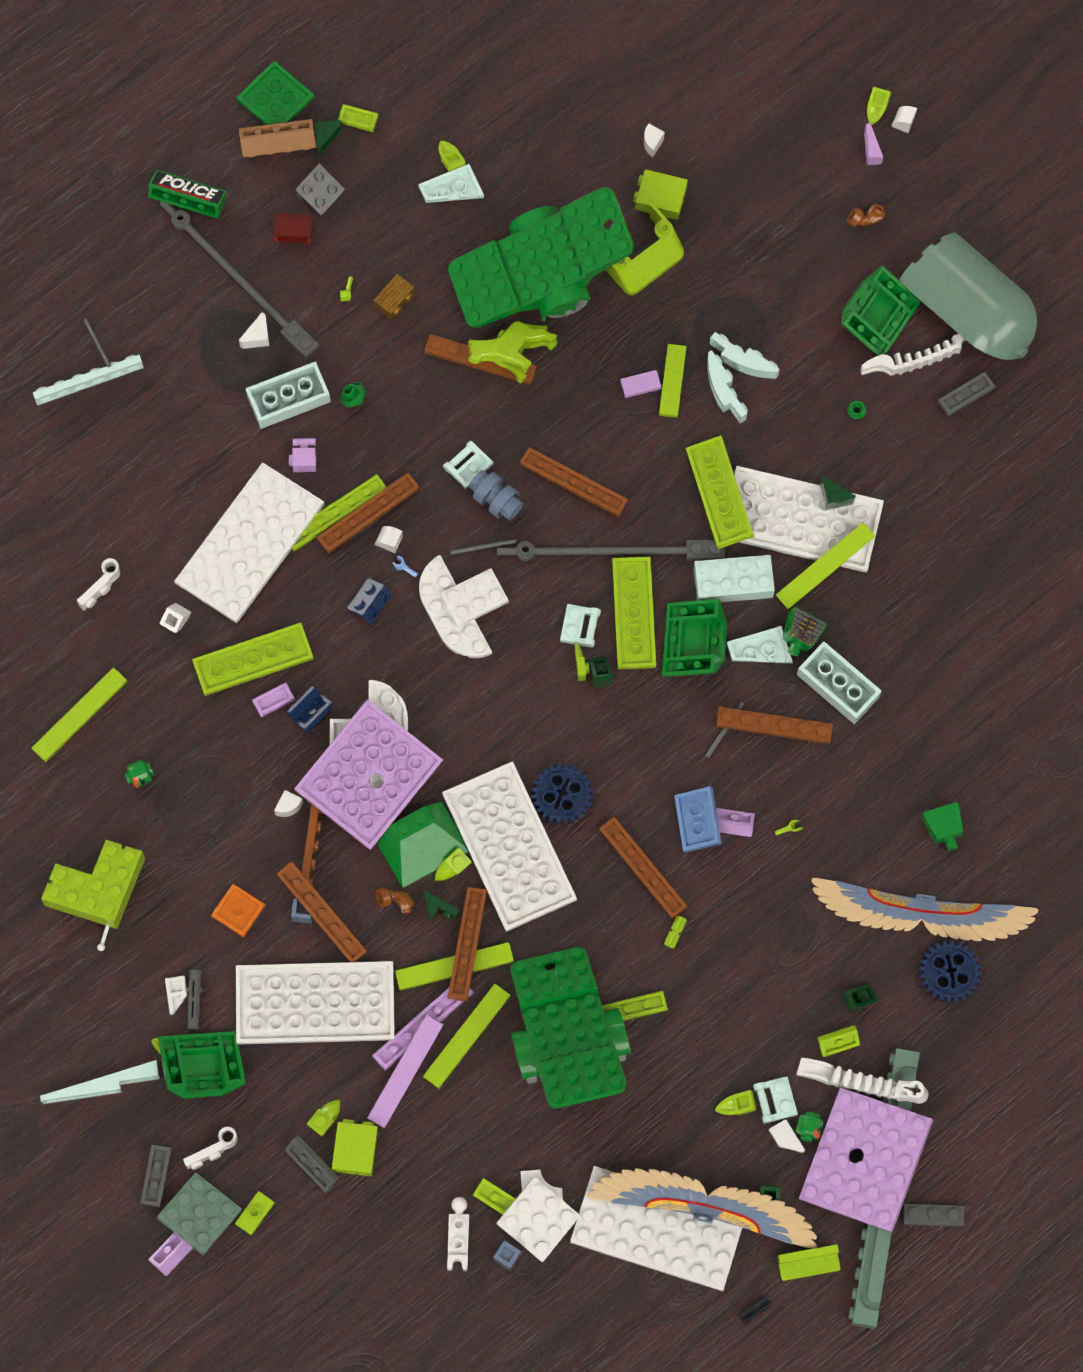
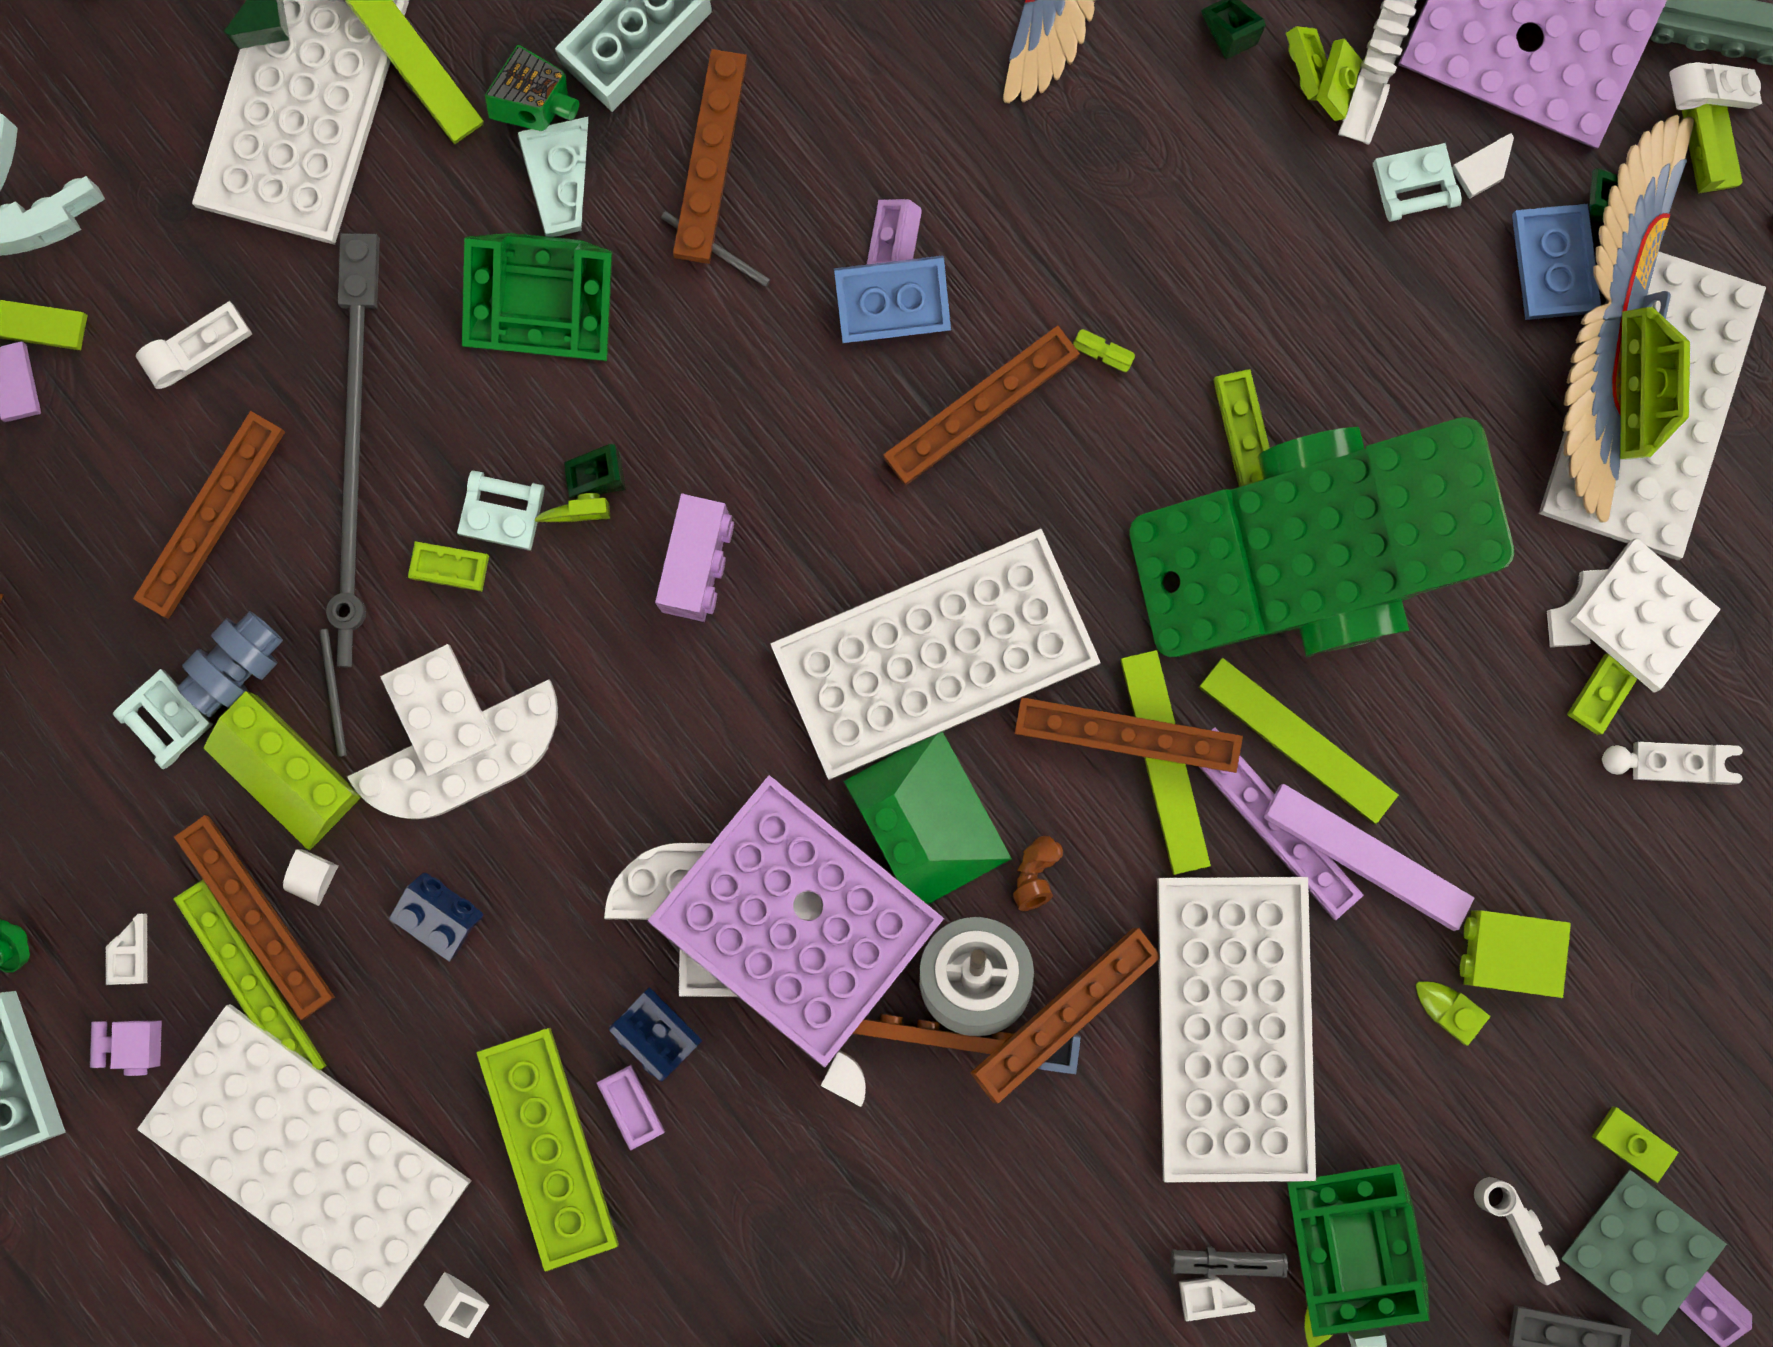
camera: 90 degrees left, 10 degrees up
(238, 910) = (1051, 1177): orange tile -> none
(311, 1164) = (1545, 1035): dark grey plate -> none
(340, 867) = (976, 976): none -> wheel
(349, 454) = (128, 954): none -> white tile
(402, 566) = (368, 847): light blue hand -> none
(436, 904) = (1048, 796): dark green slope -> none
(443, 522) = (280, 769): none -> lime slope
(452, 865) = (968, 762): lime plate -> none
(507, 1255) = (1718, 671): sand blue panel -> none
(545, 787) = (850, 521): dark blue gear -> none
(549, 600) = (448, 566): none -> lime plate
(555, 720) = (694, 558): none -> lavender brick
(634, 613) = (479, 407): lime plate -> none
(661, 470) = (193, 347): none -> white plate
(661, 1216) = (1652, 382): none -> lime wedge
(719, 492) = (244, 234): lime plate -> none
(733, 1170) = (1556, 261): none -> medium blue plate
(734, 578) = (421, 216): light aqua brick -> none
(737, 1104) = (1427, 249): lime plate -> none
(791, 827) = (909, 137): lime hand -> none
(809, 1126) = (1468, 122): green head -> none
(829, 1053) = (1339, 79): none -> lime plate
(833, 1260) = (1716, 85): none -> white plate

